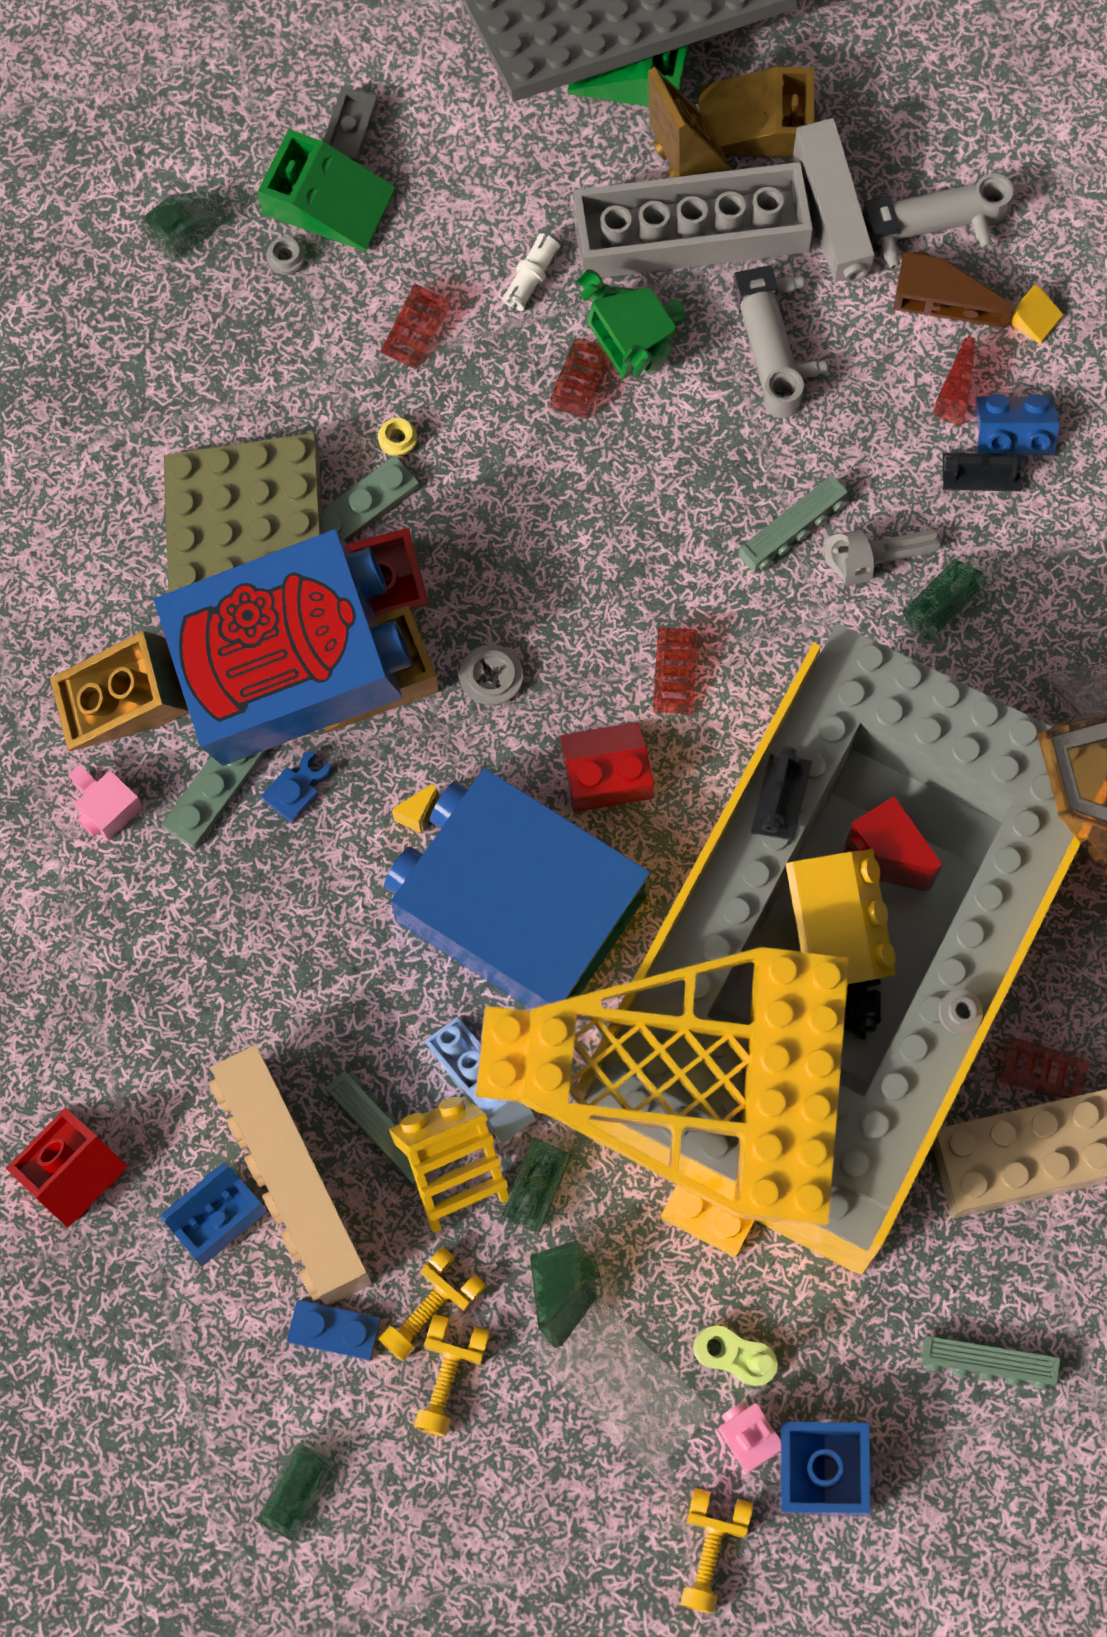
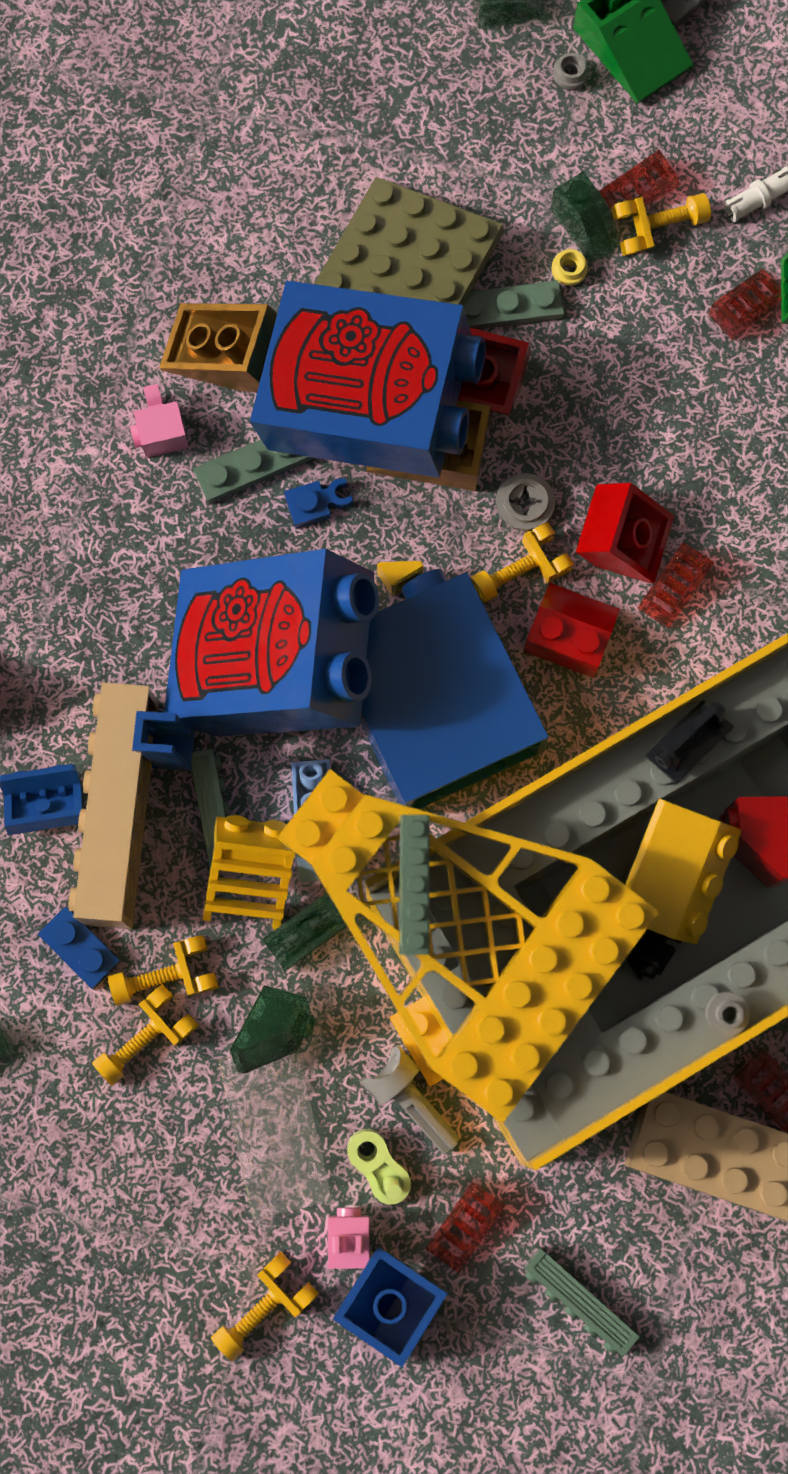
camera: 30 degrees right, 5 degrees up
(301, 1085) = (171, 740): none -> blue window
(347, 939) = (272, 644): none -> blue brick
(384, 383) = (585, 217): none -> clear green slope
(481, 319) = (696, 210): none -> yellow bar
(533, 720) = (487, 584): none -> yellow bar
(599, 649) = (625, 531): none -> red slope
(624, 1060) = (414, 884): none -> sand green piece
(704, 1269) = (396, 1083): none -> light grey piece
(846, 1322) = (484, 1198): none -> clear red slope

